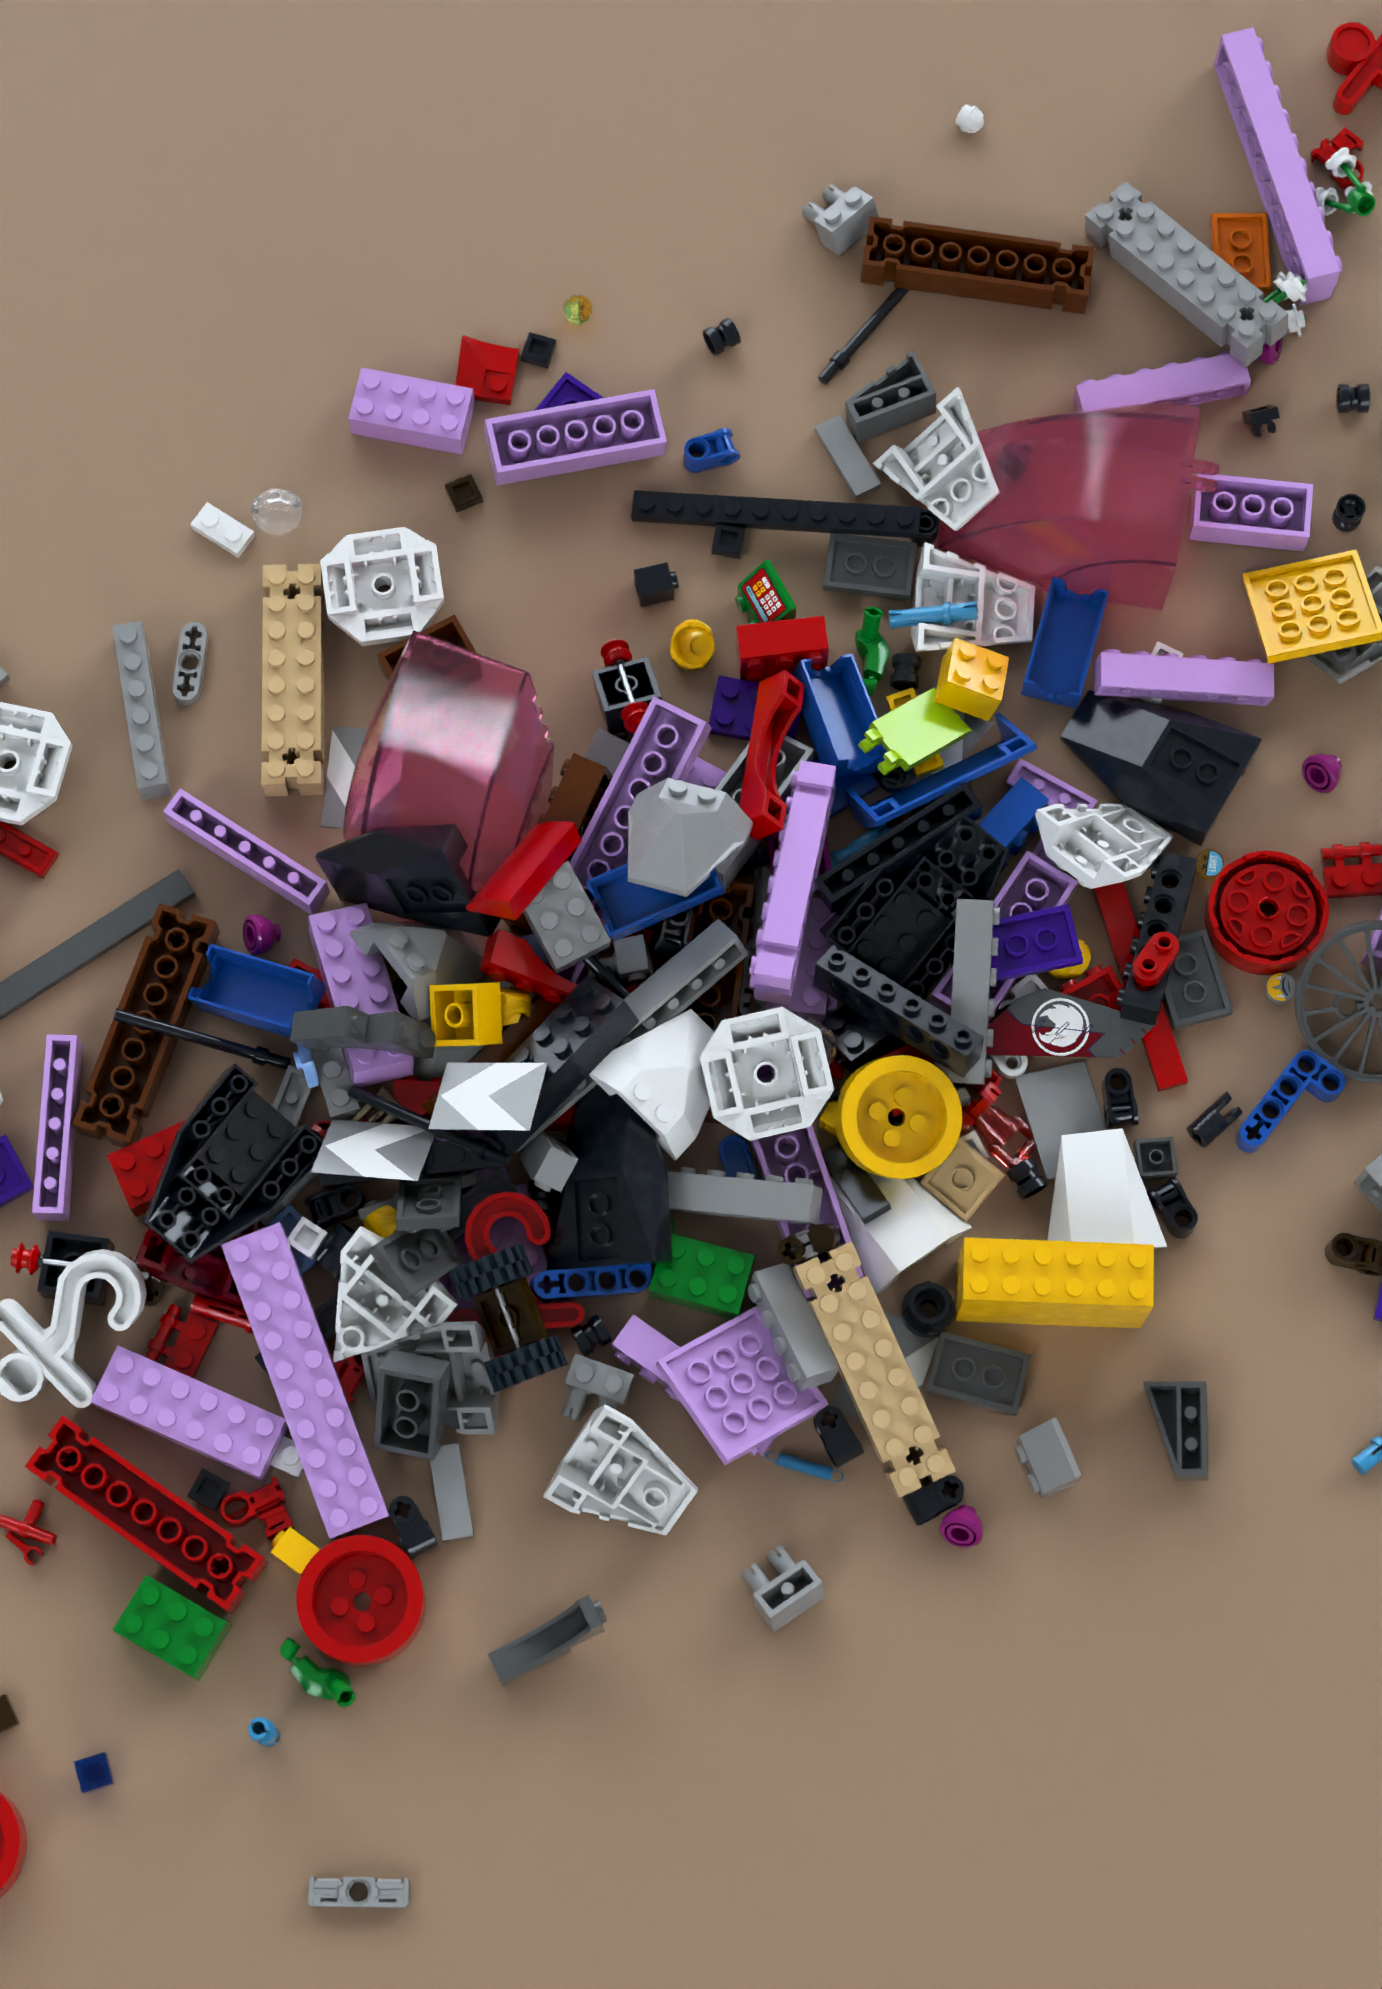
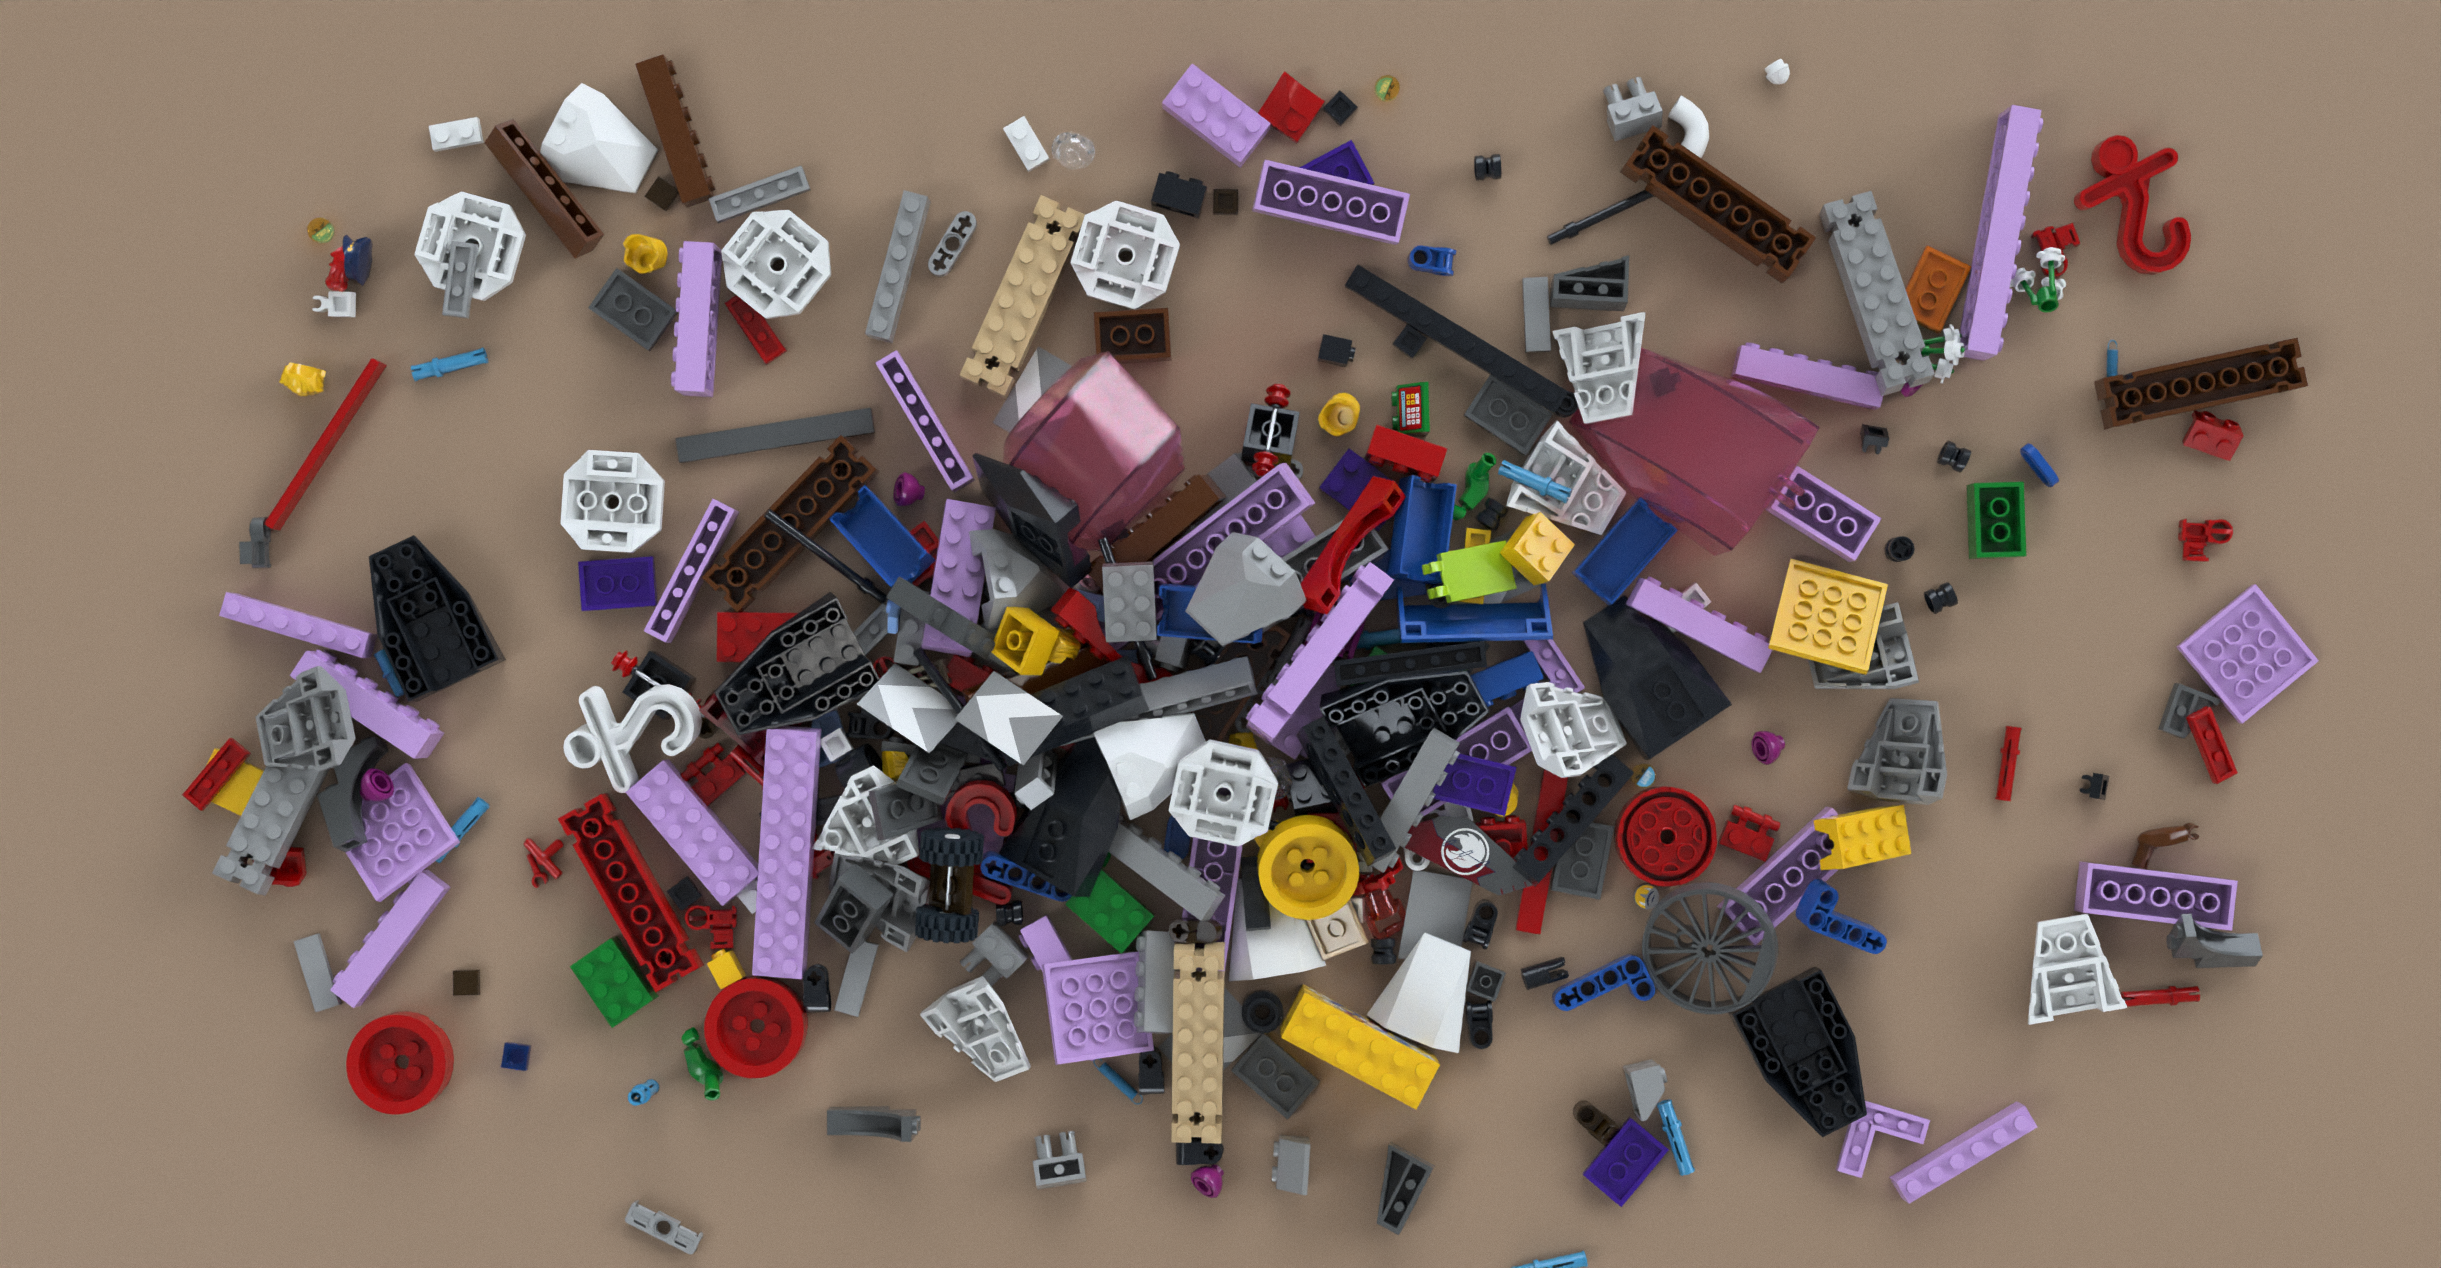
camera: 30 degrees right, 15 degrees up
(411, 505) = (1179, 194): none -> black brick
(526, 870) = (1117, 557): red slope -> none
(909, 202) = (1693, 123): none -> white cylinder
(1157, 956) = (1560, 841): red plate -> none

